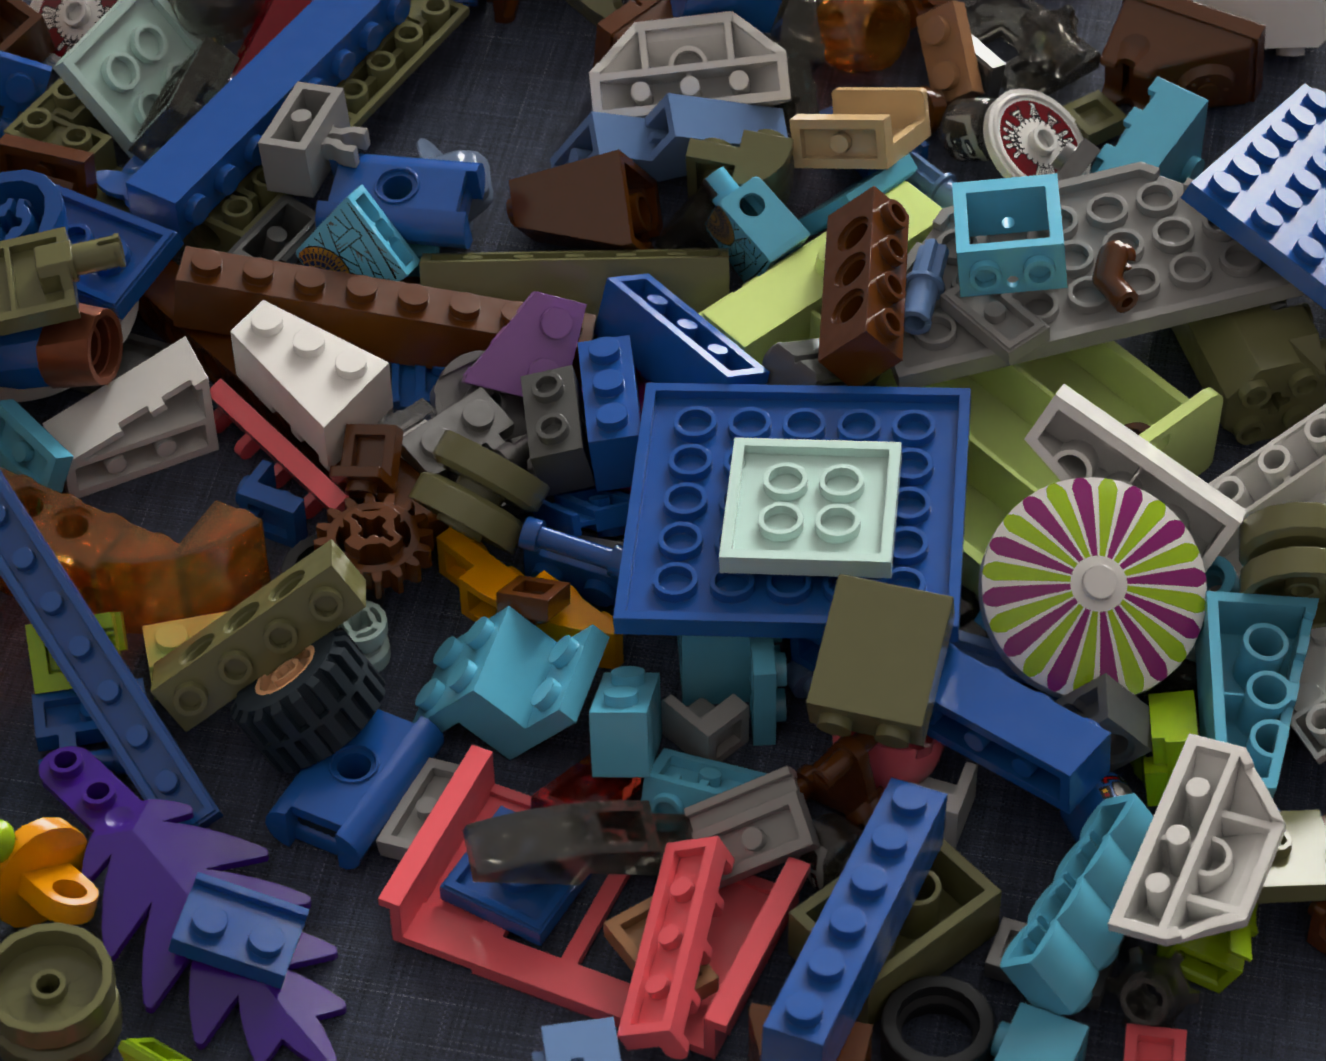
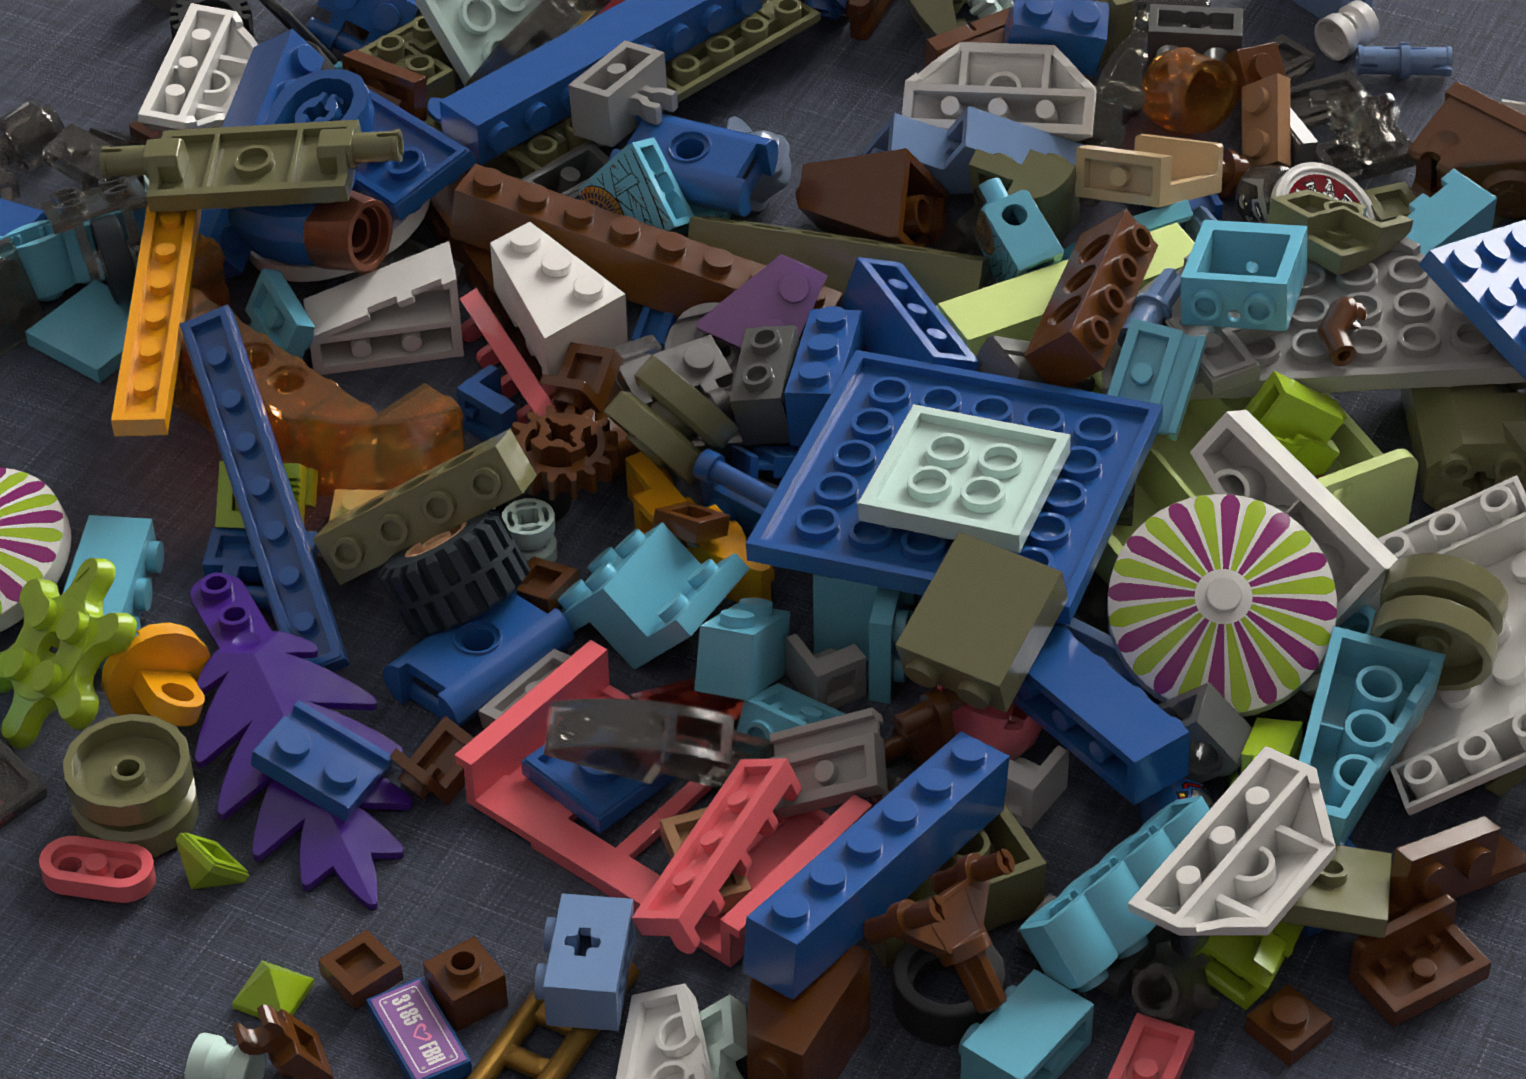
camera: 15 degrees right, 5 degrees down
(353, 904) = (433, 763): none -> reddish brown bracket
(401, 687) = (546, 583): none -> reddish brown plate
(941, 977) = (953, 924): none -> reddish brown axle
(953, 350) = (1159, 368): none -> medium azure plate
(1085, 172) = (1337, 229): none -> olive slope
(1098, 373) = (1299, 420): none -> lime piece
(1266, 1001) = (1288, 1025): none -> reddish brown plate

